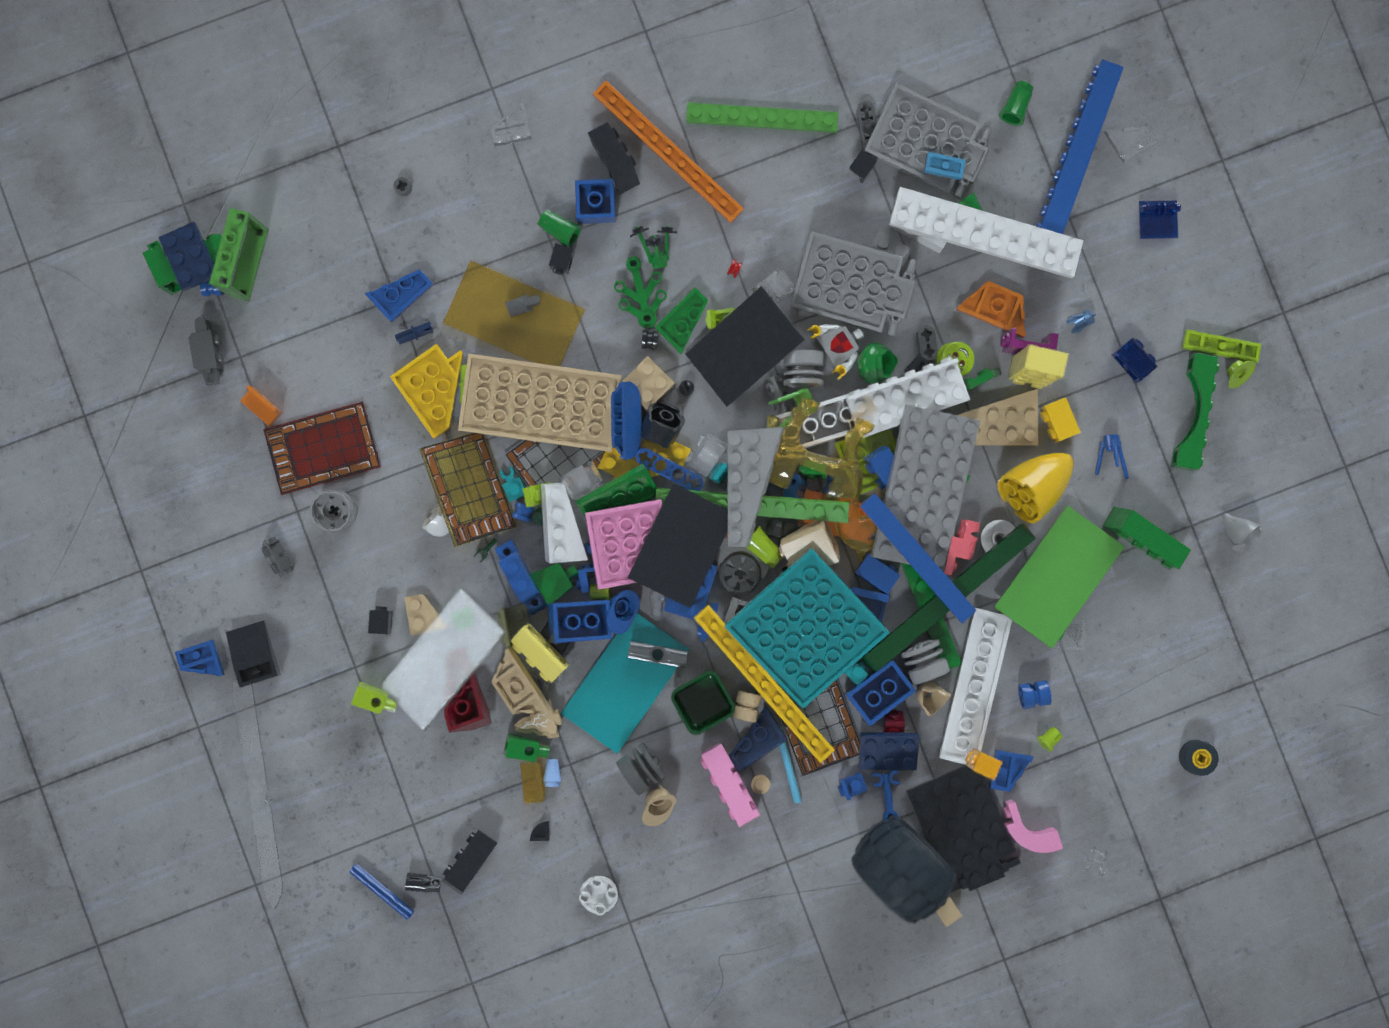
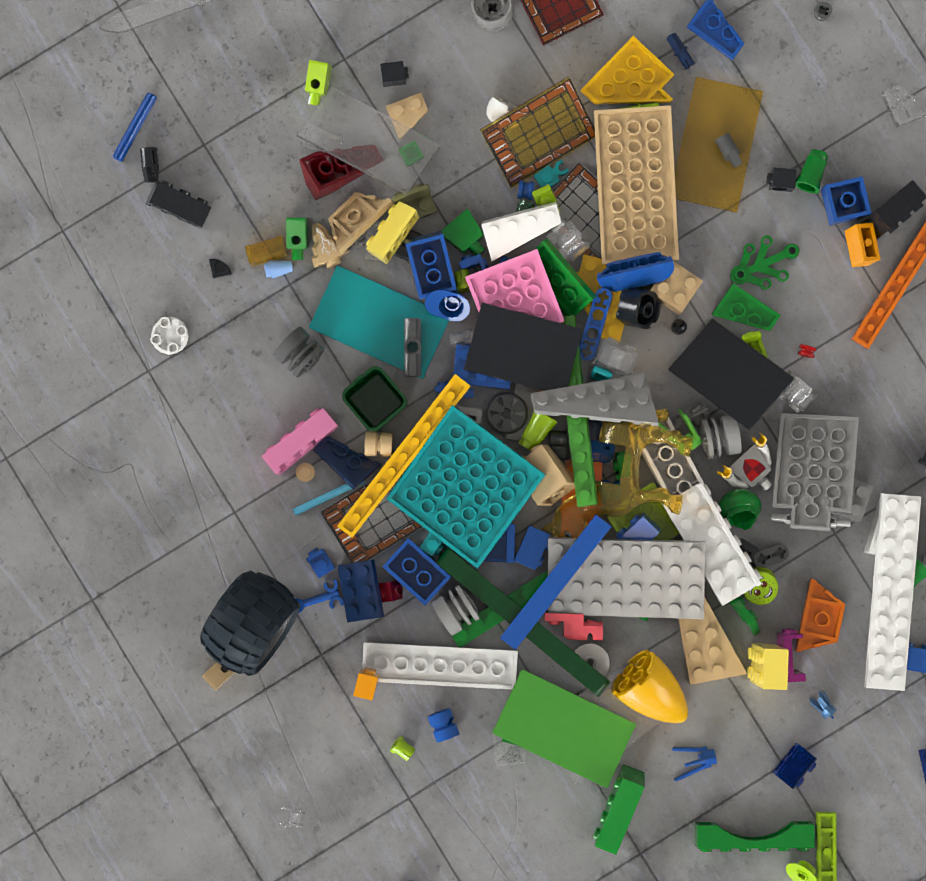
camera: 85 degrees right, 0 degrees up
(484, 551) = (480, 160): dark green hand -> none
(519, 577) = (462, 197): blue brick -> none
(641, 194) = (862, 245): none -> light orange brick
(649, 339) = (719, 281): black wheel -> none
(657, 258) = (802, 273): plant -> none
(658, 806) = (264, 376): tan piece -> none
(935, 701) = (416, 628): tan hair -> none
(964, 826) = (300, 679): black plate -> none
(1010, 770) = (364, 712): blue wing -> none
(1037, 841) = (299, 751): bright pink arch -> none
(1059, 420) = (719, 701): yellow brick -> none

